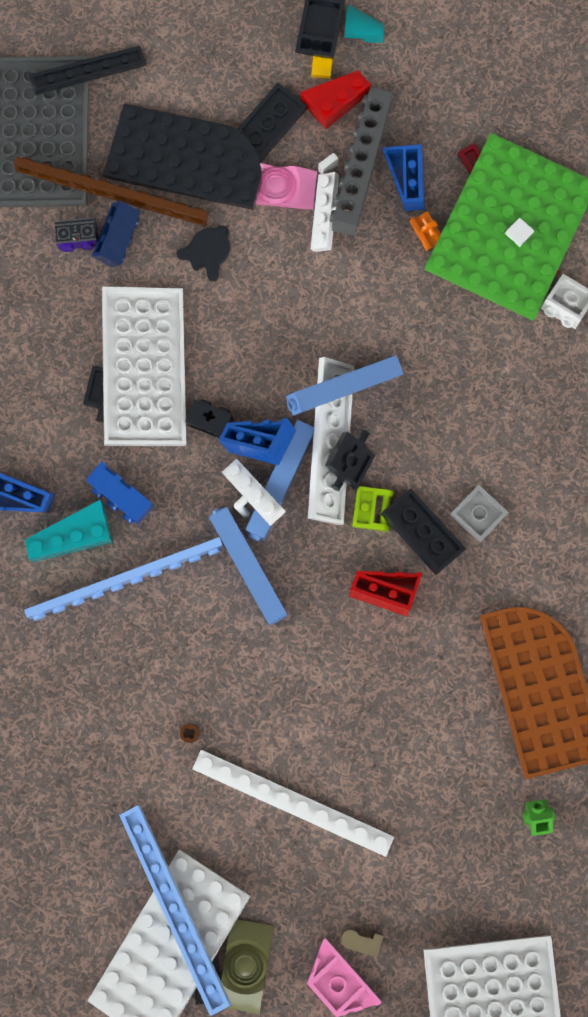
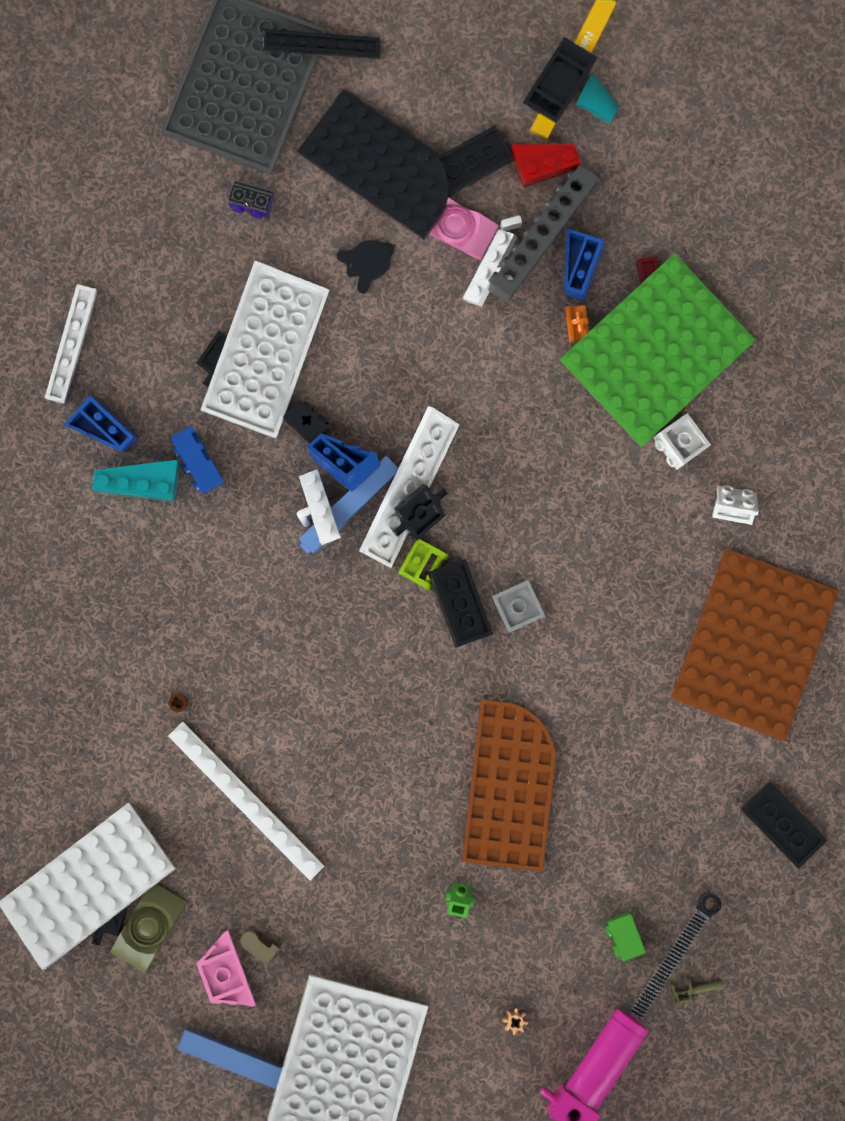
camera: 10 degrees right, 5 degrees up
(105, 189) = (293, 166): reddish brown plate -> none
(116, 234) = (287, 214): dark blue brick -> none
(116, 582) = (164, 541): light blue plate -> none
(175, 911) = (104, 854): light blue plate -> none
(247, 565) = (288, 571): medium blue brick -> none
(344, 385) = (440, 441): medium blue brick -> none
(386, 590) = (404, 643): red wedge -> none
(519, 232) = (661, 359): white tile -> none

